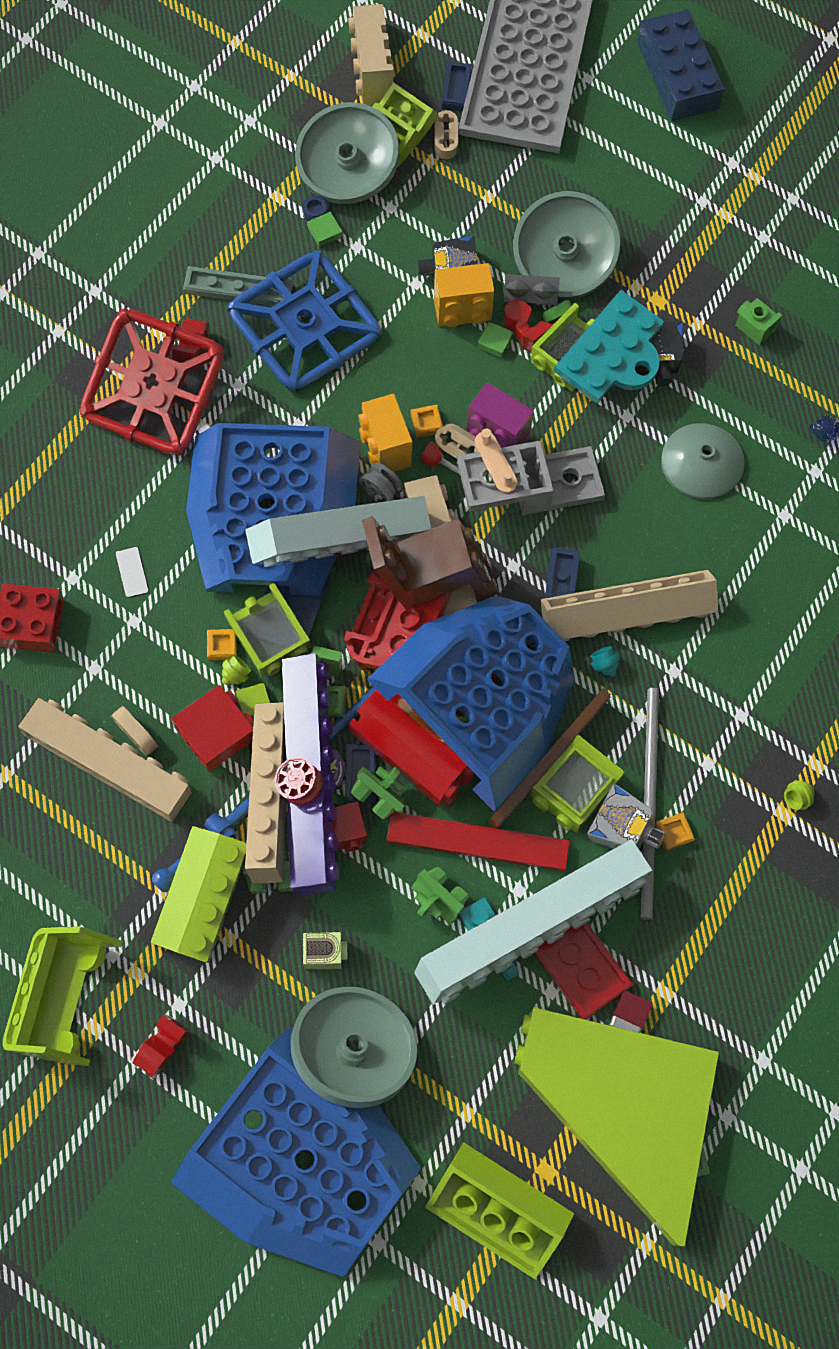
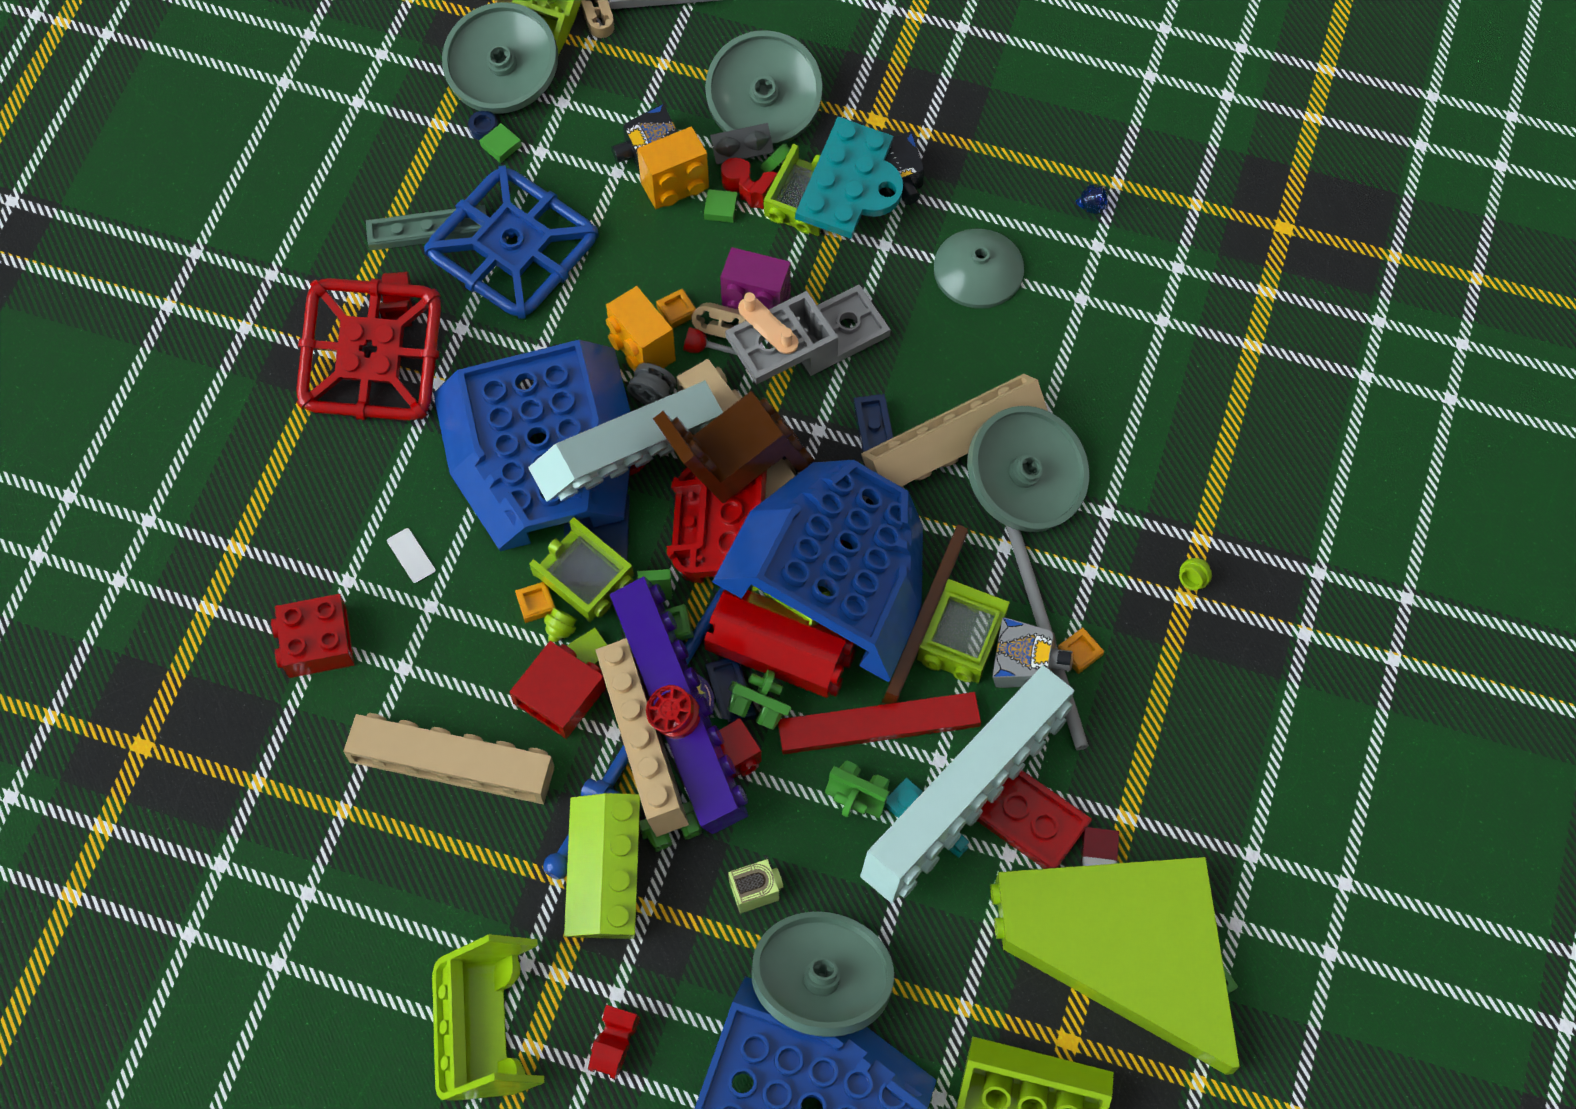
camera: 15 degrees left, 5 degrees down
(134, 731) = (471, 719): tan beam -> none
(605, 661) = (949, 498): teal plate -> none
(682, 656) = (1028, 469): none -> sand green dish
(757, 320) = (986, 111): bright green brick -> none

